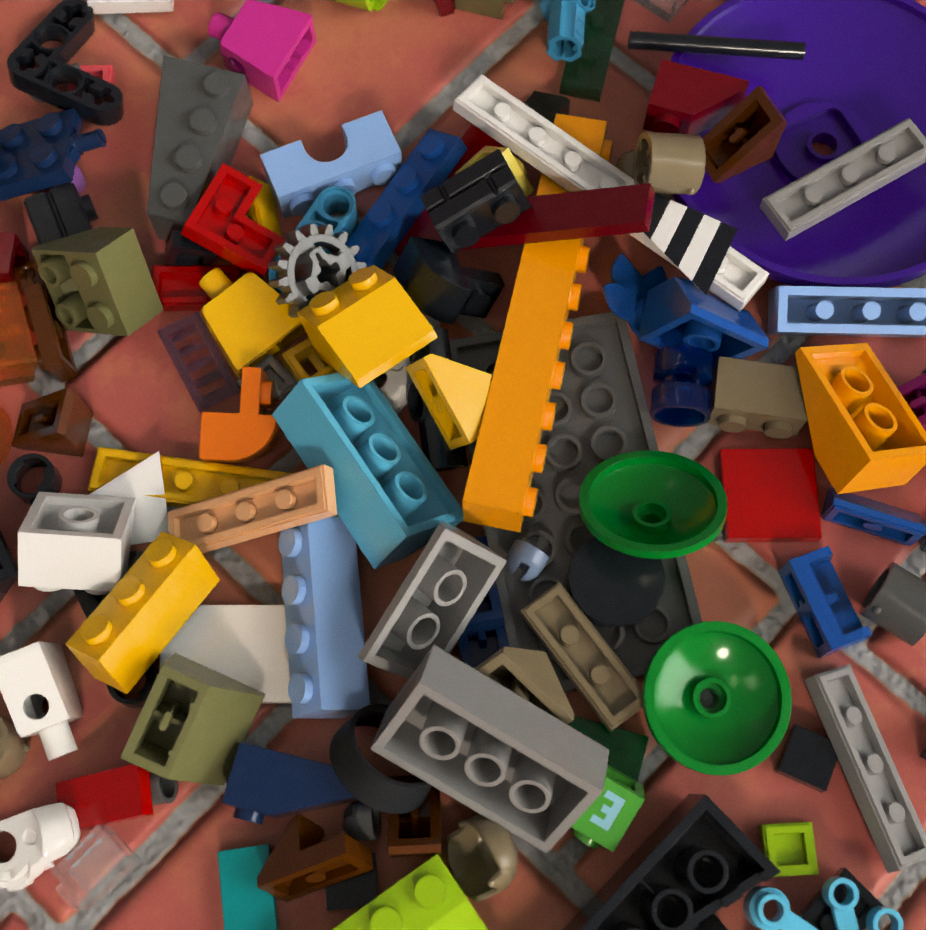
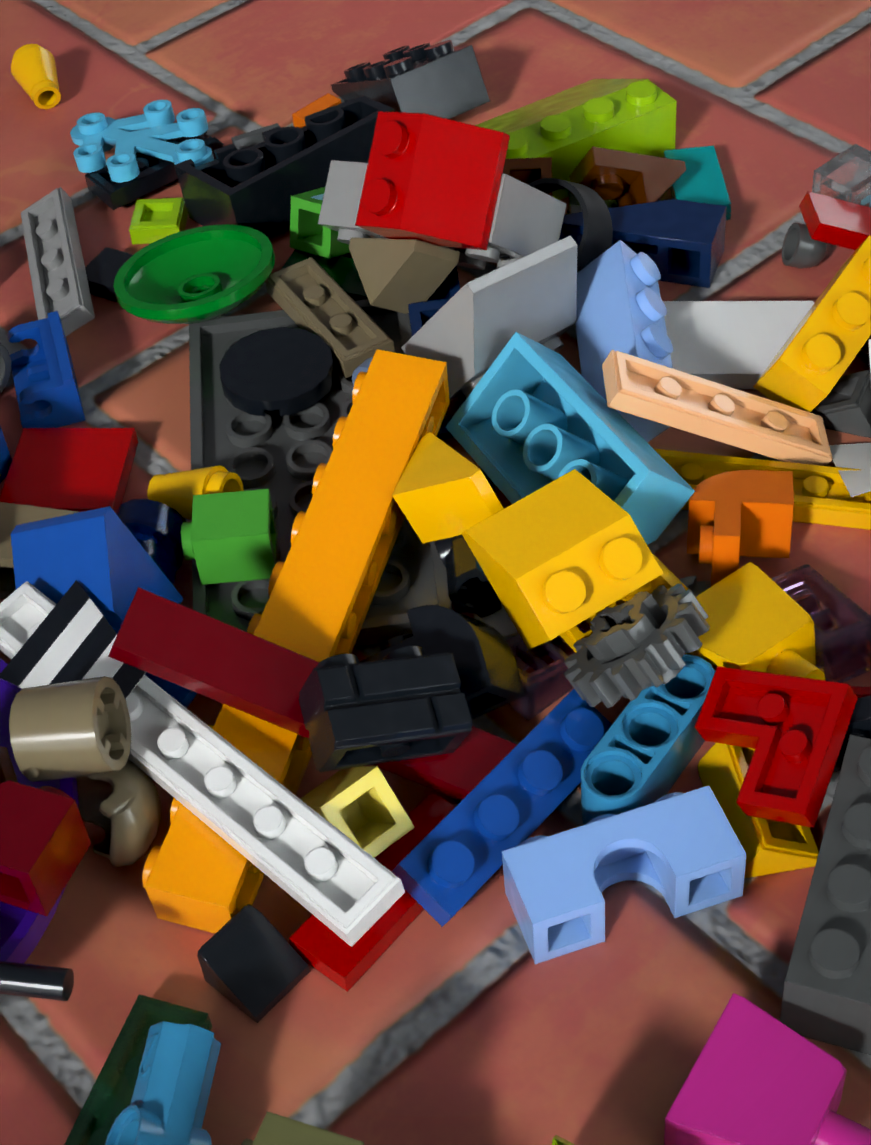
camera: 170 degrees left, 25 degrees down
(192, 723) = (773, 262): olive slope -> none
(490, 686) = (432, 180): none -> red slope
(612, 380) = (231, 536): none -> bright green brick
(648, 427) = (178, 488): none -> yellow cone
(653, 504) = (208, 362): green dish -> none

